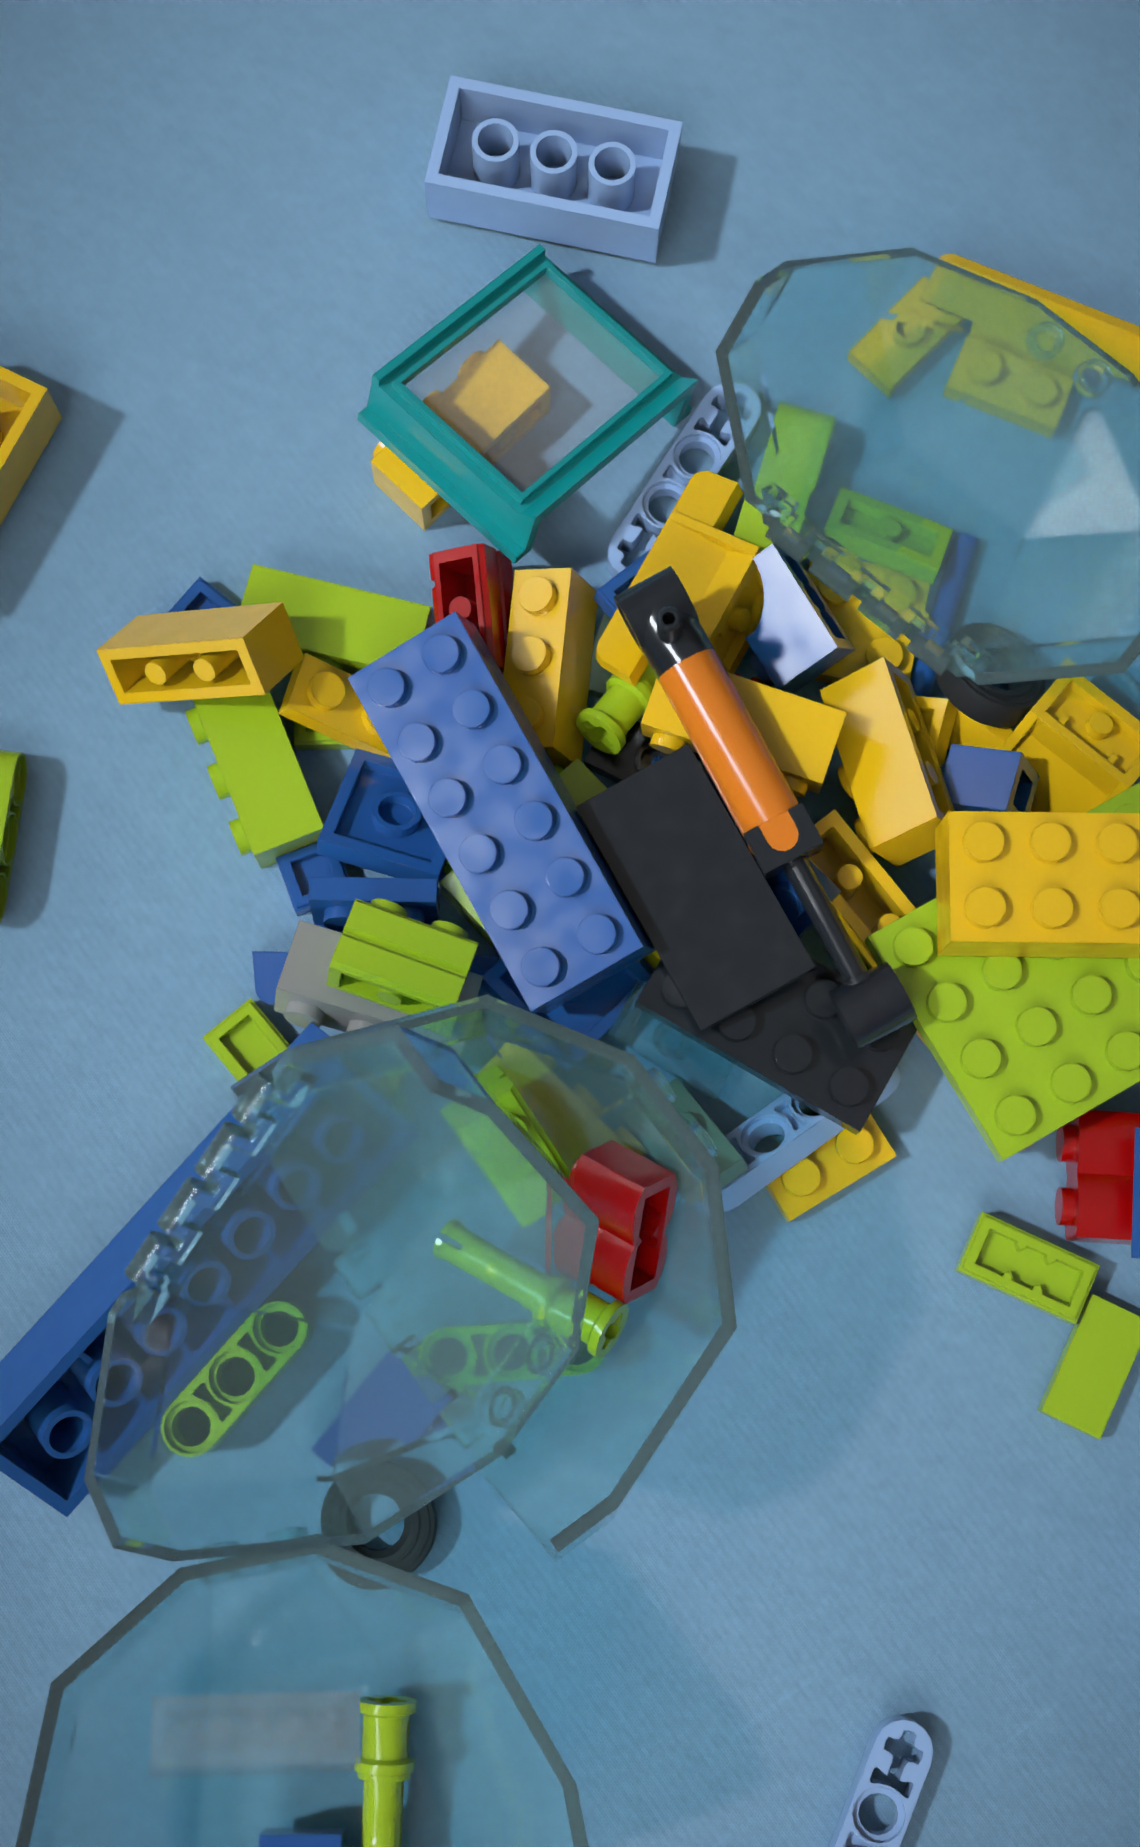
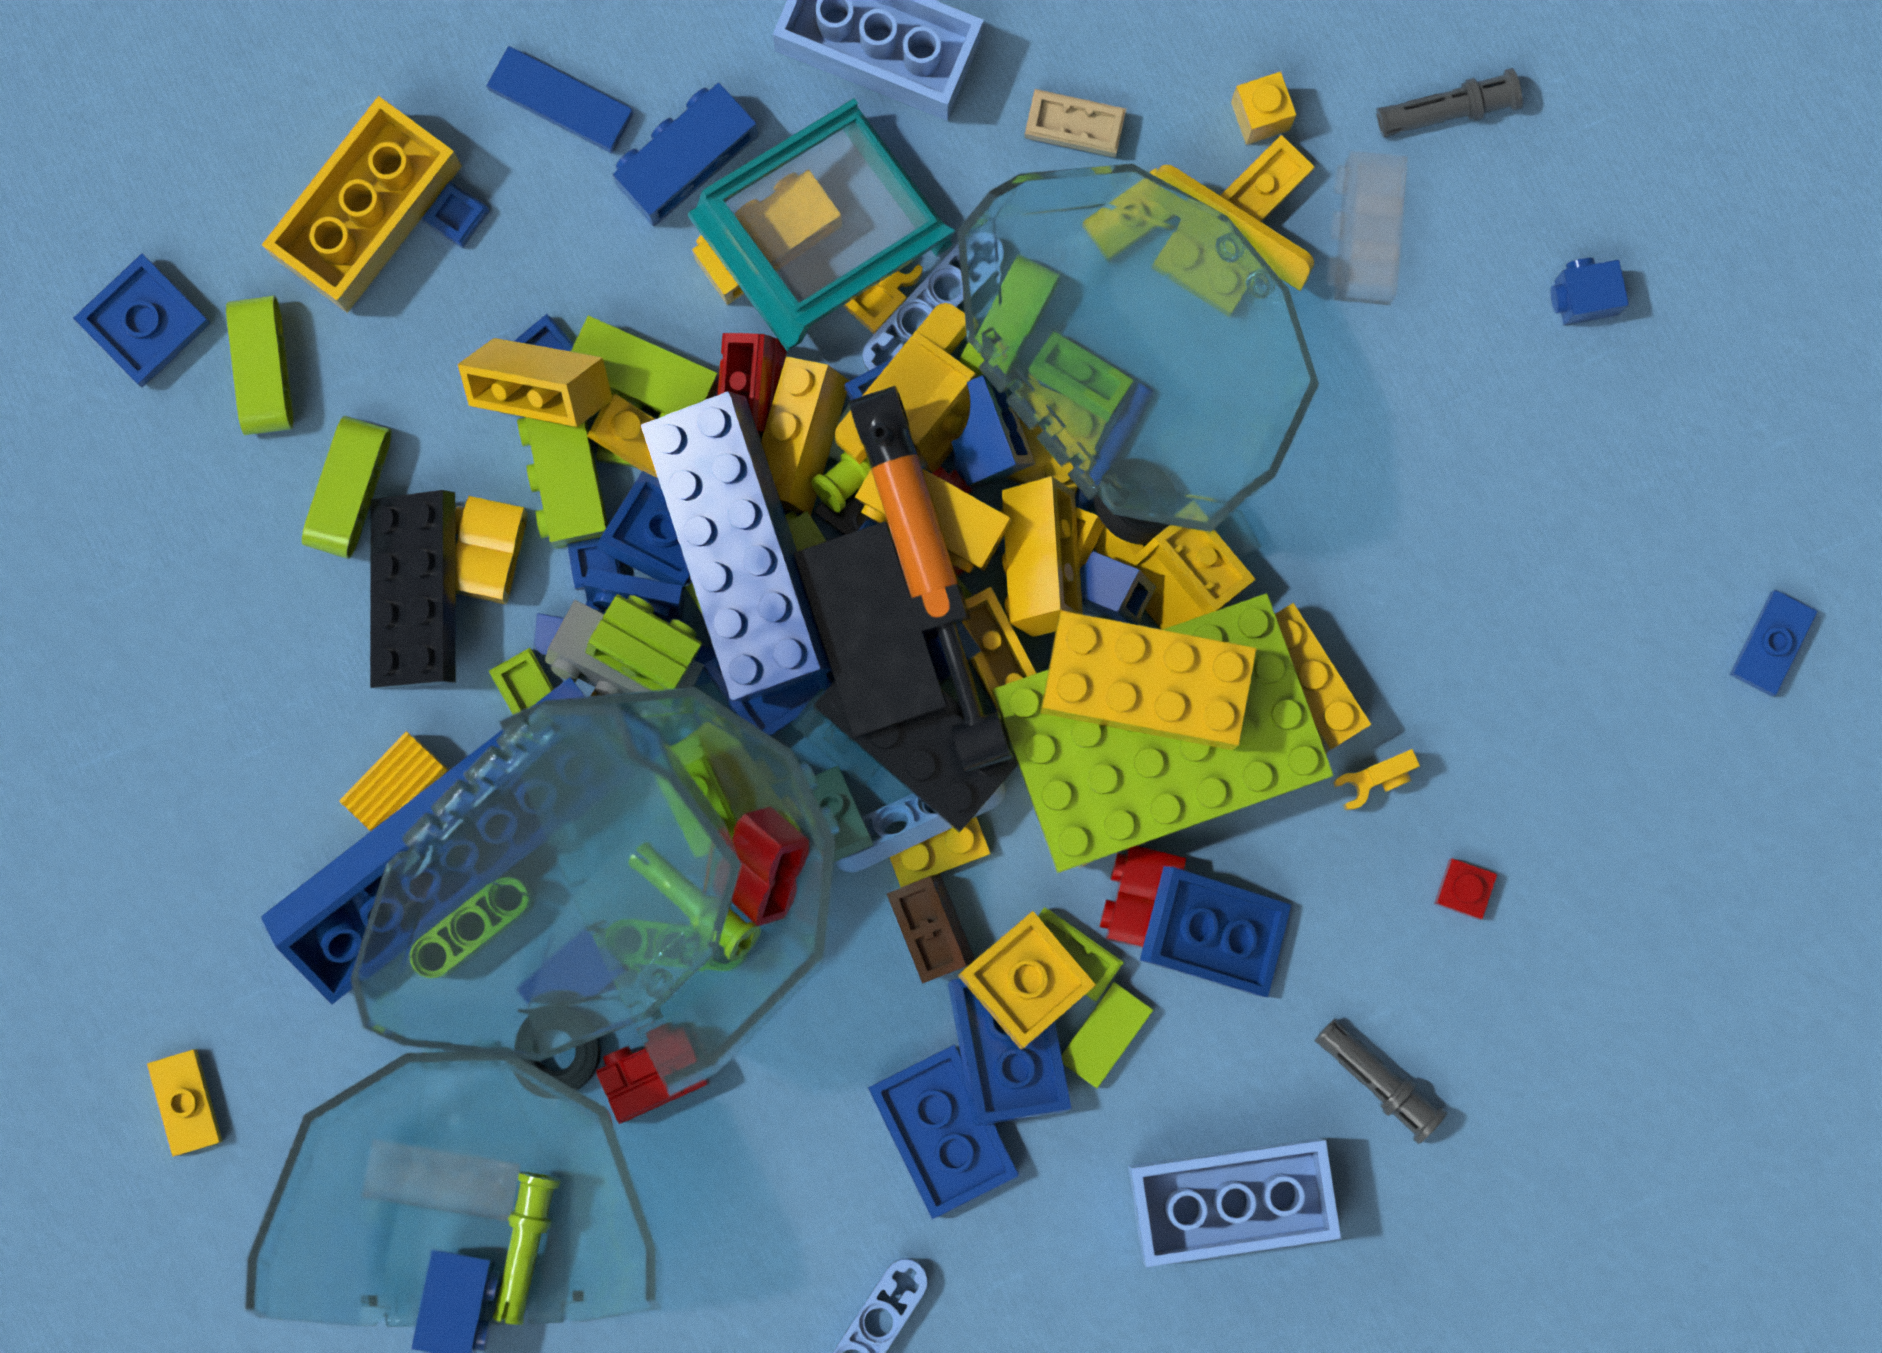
camera: 10 degrees right, 5 degrees up
(64, 477) = (456, 214): none -> blue tile
(86, 950) = (413, 590): none -> black plate
(100, 1203) = (393, 781): none -> yellow brick
(171, 317) = (560, 99): none -> blue tile
(171, 883) = (488, 548): none -> yellow brick
(338, 352) = (684, 153): none -> blue brick
(490, 1548) = (635, 1084): none -> red brick
(616, 486) = (883, 299): none -> yellow plate
(810, 232) = (1075, 123): none -> tan plate
(841, 1268) = (931, 927): none -> reddish brown hinge
(911, 1536) = (936, 1136): none -> blue plate
(977, 1405) = (998, 1075): none -> blue plate
(985, 1312) = (1026, 980): none -> yellow plate
(1042, 178) = (1263, 108): none -> yellow brick
(1071, 255) = (1269, 179): none -> yellow plate

